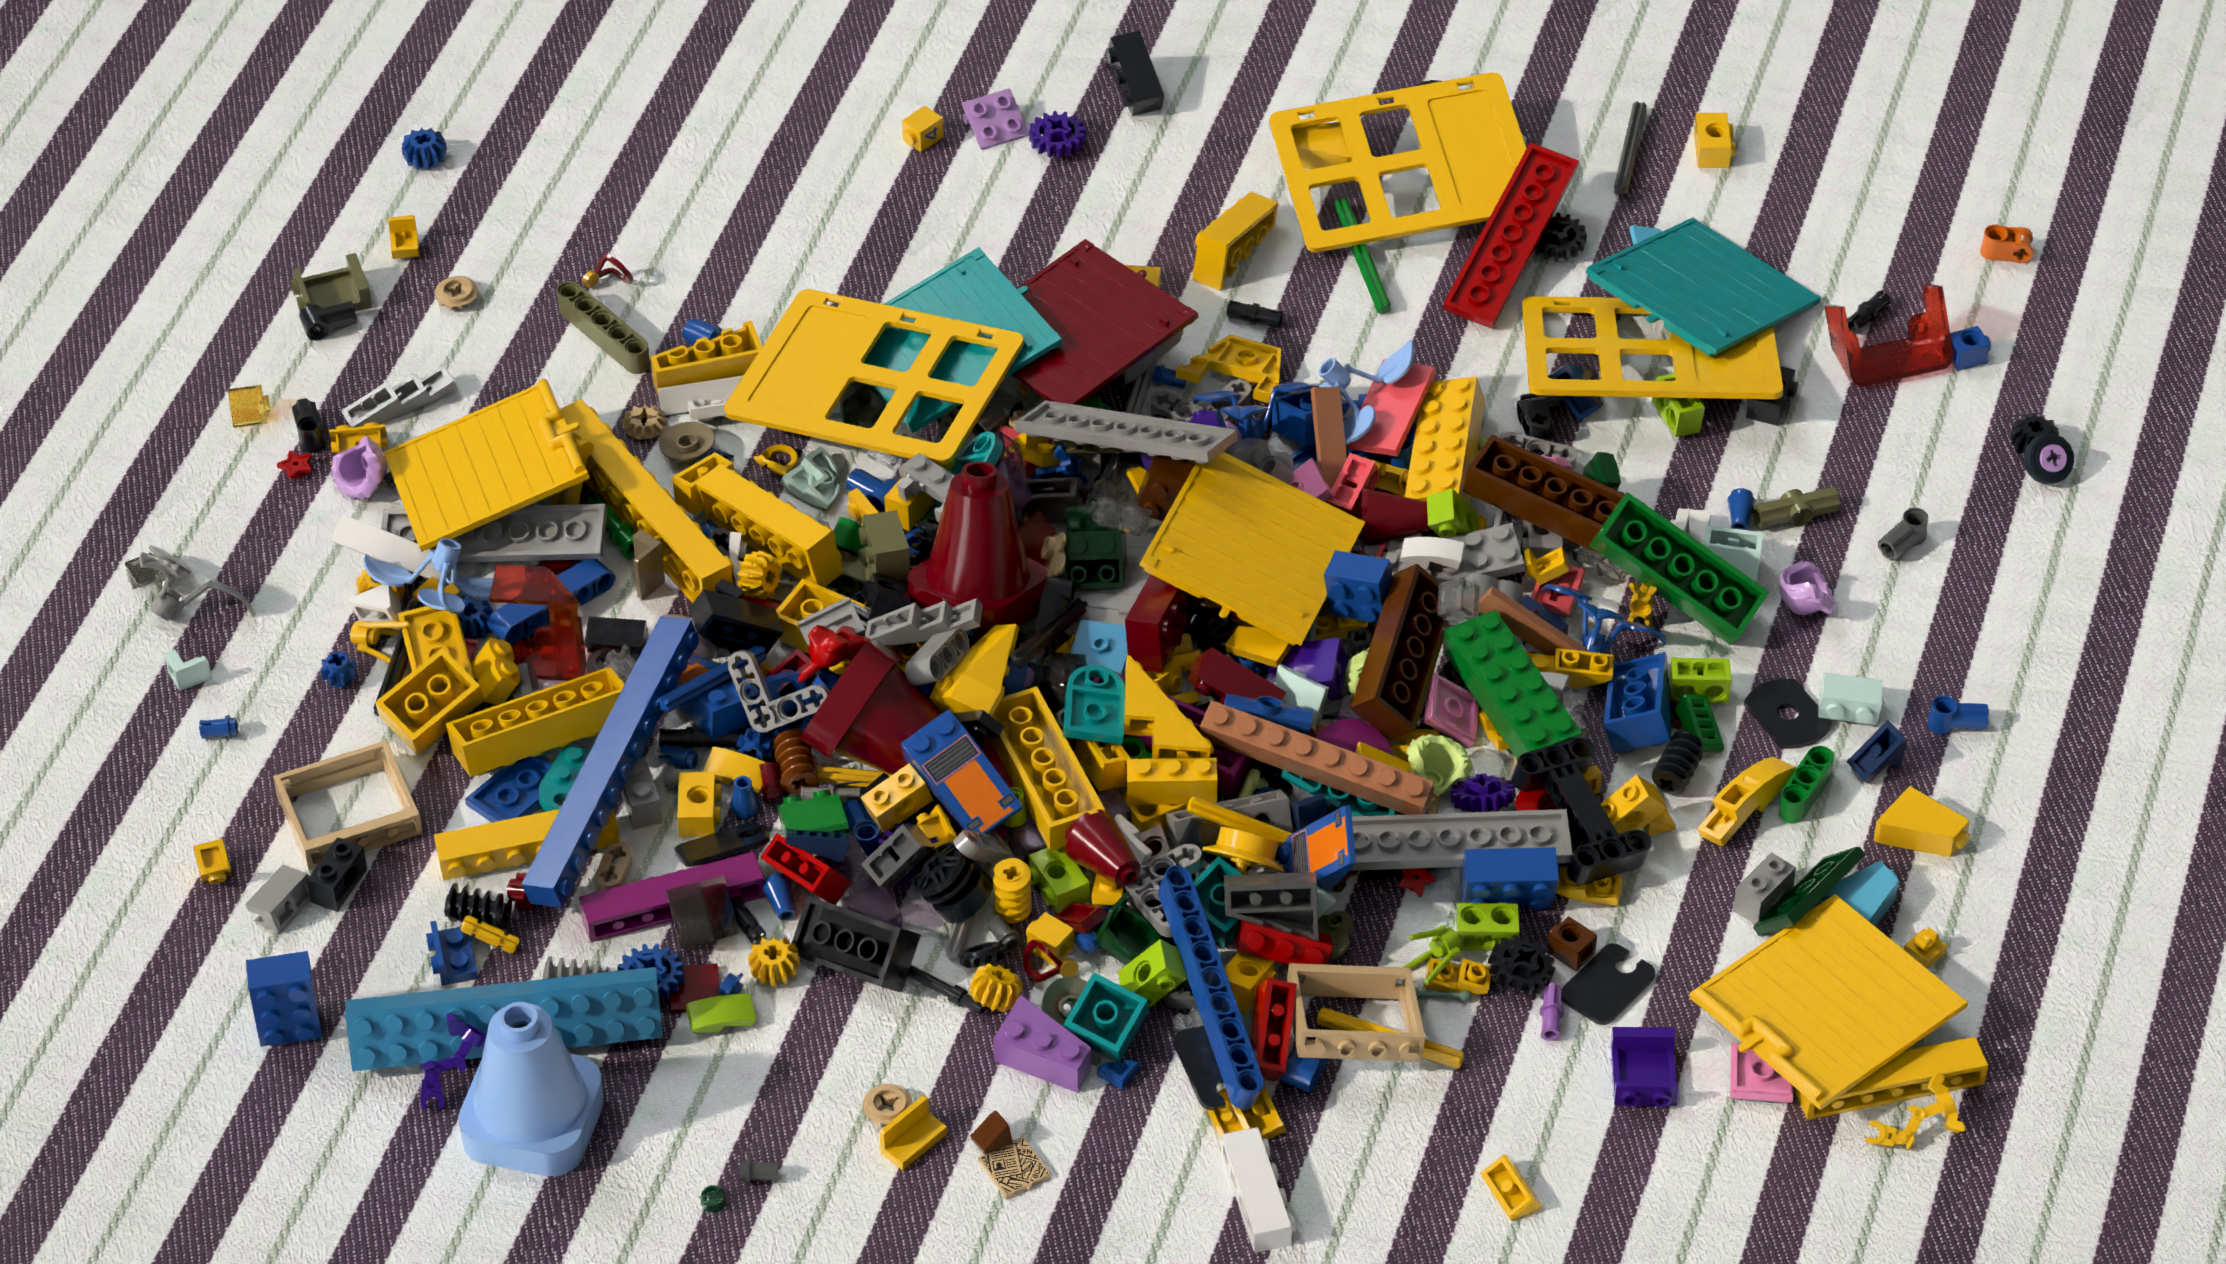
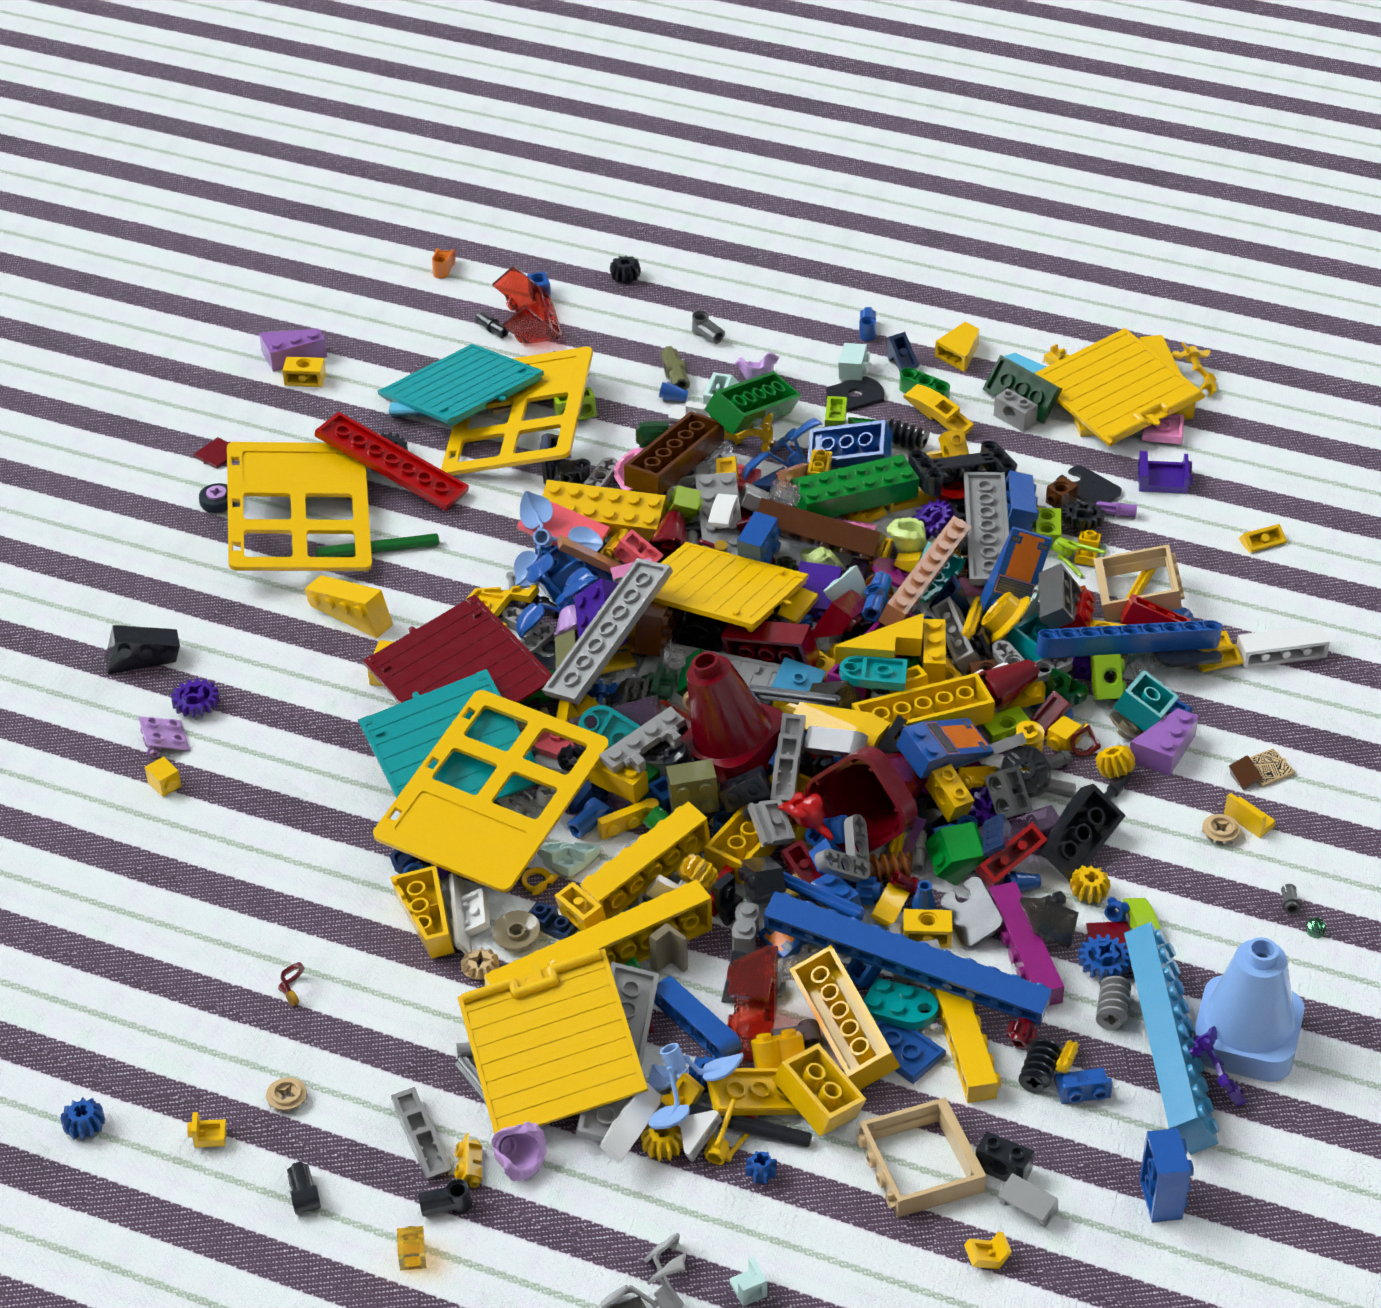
camera: 85 degrees left, 5 degrees down
(219, 727) = (822, 1250): blue pin -> none
(296, 465) = (492, 1217): red plate -> none
(333, 287) = (261, 1186): olive panel -> none
(603, 327) = (360, 986): olive beam -> none
(698, 329) = (385, 919): blue brick -> none
(983, 954) = (1073, 772): black gear -> none
(1254, 313) = (429, 603): black pin -> none
(1321, 145) = (259, 547): yellow slope -> none
(1535, 90) = (213, 453): none -> dark red piece
(1630, 148) = (291, 410): dark grey axle -> none
(1759, 119) = (293, 343): none -> medium lavender wedge
(2038, 459) = (651, 262): black wheel -> none

